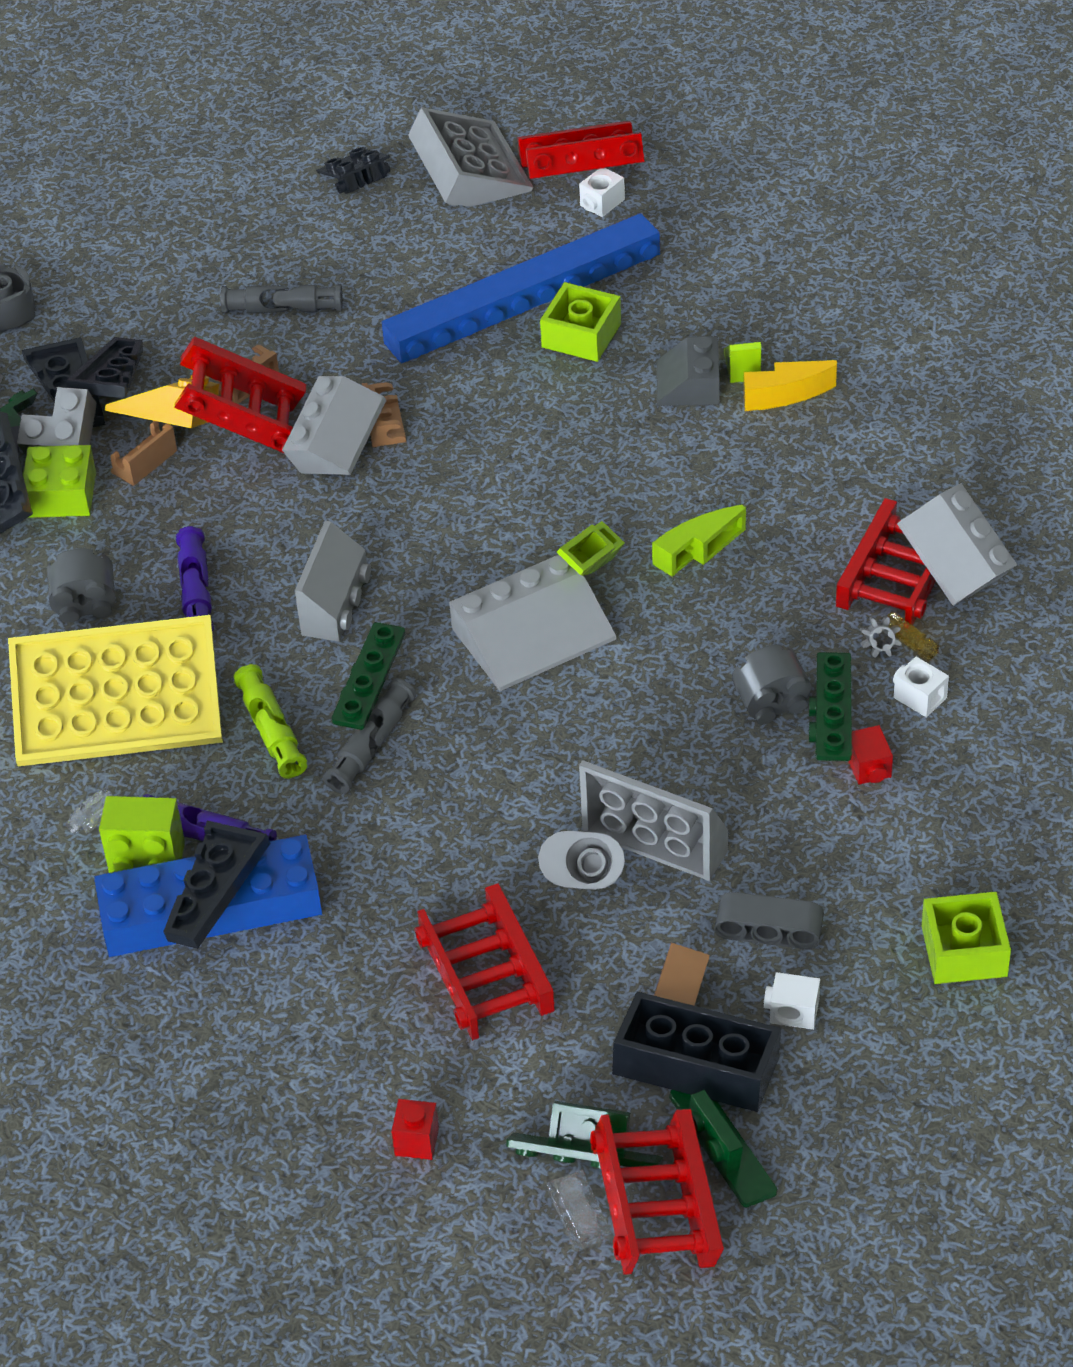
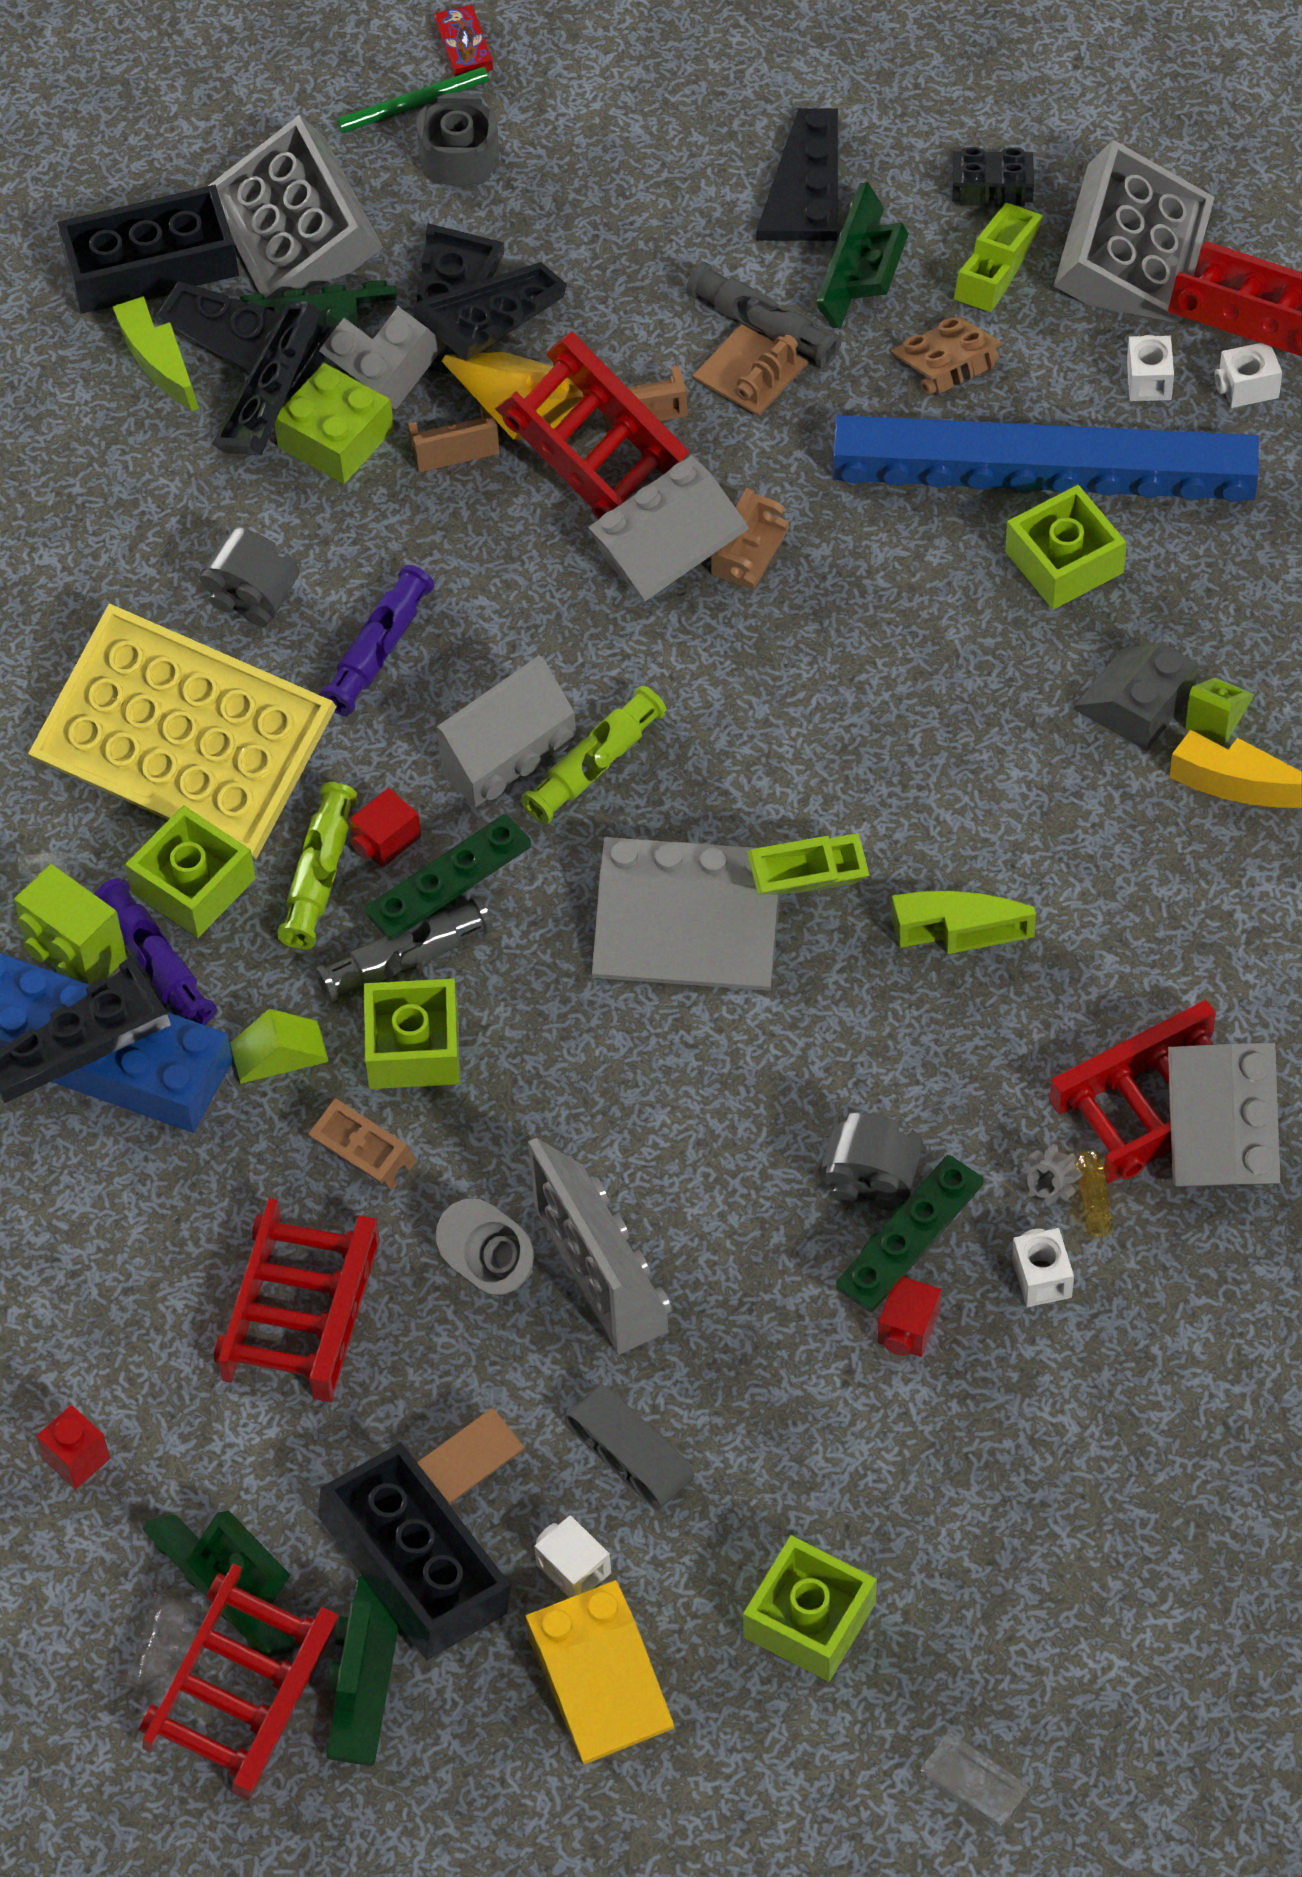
camera: 35 degrees right, 10 degrees up
(192, 763) = (190, 871): none -> lime brick
(242, 223) = (805, 187): none -> black wing
(296, 677) = (384, 828): none -> red brick
(299, 329) = (751, 368): none -> medium nougat hinge
(319, 242) = (863, 257): none -> dark green bracket
(335, 833) = (277, 1045): none -> lime slope
(392, 570) = (597, 751): none -> lime piece
(397, 206) = (997, 257): none -> lime slope
(414, 264) = (948, 354): none -> medium nougat hinge
(422, 773) = (411, 1033): none -> lime brick
(445, 849) = (362, 1143): none -> medium nougat hinge
(541, 215) = (1150, 368): none -> white brick
(868, 1052) = (599, 1671): none -> yellow slope

